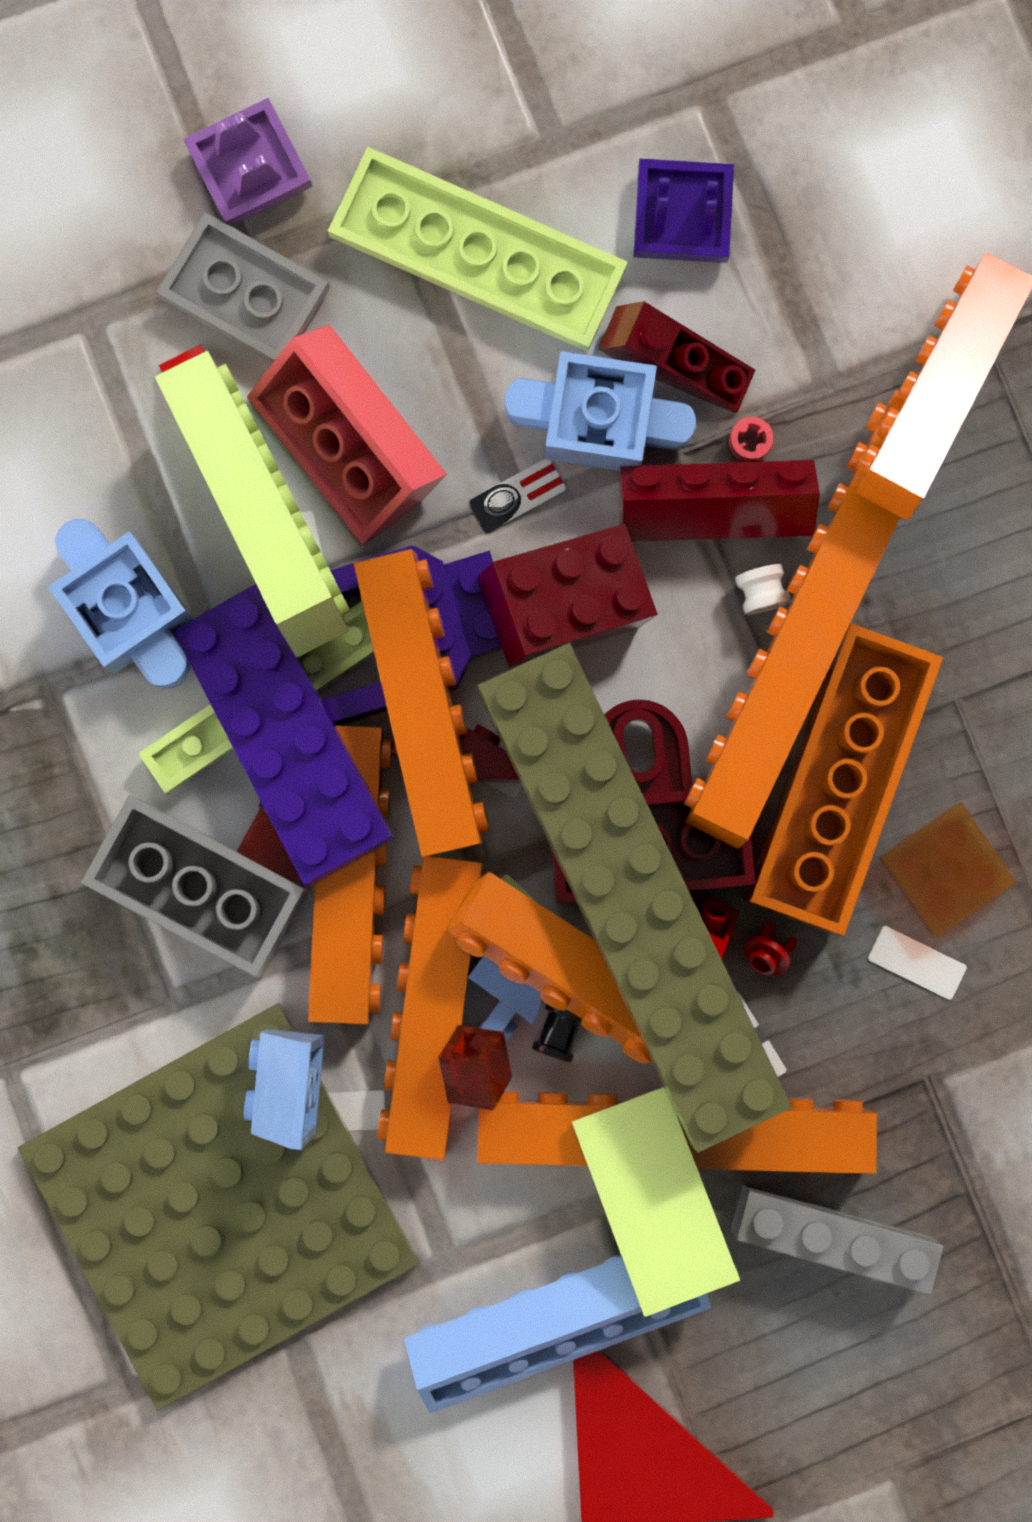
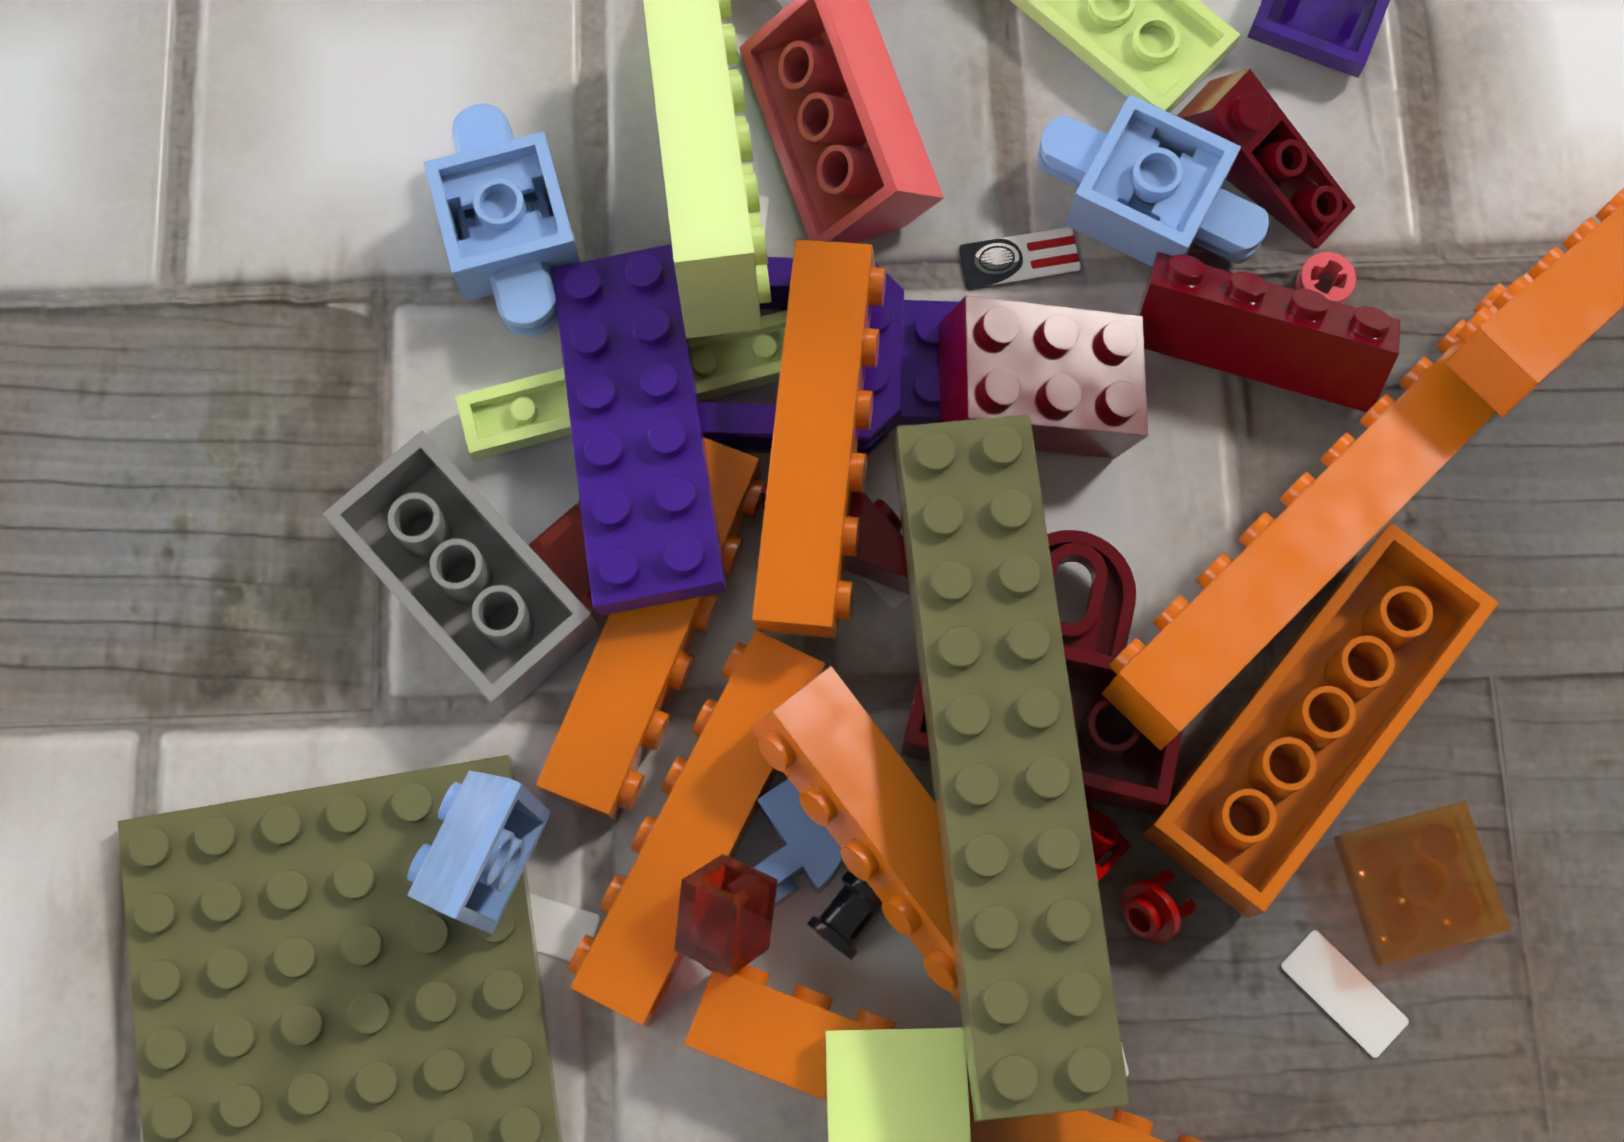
camera: 25 degrees right, 10 degrees down
(763, 589) = (1285, 454): white wheel -> none

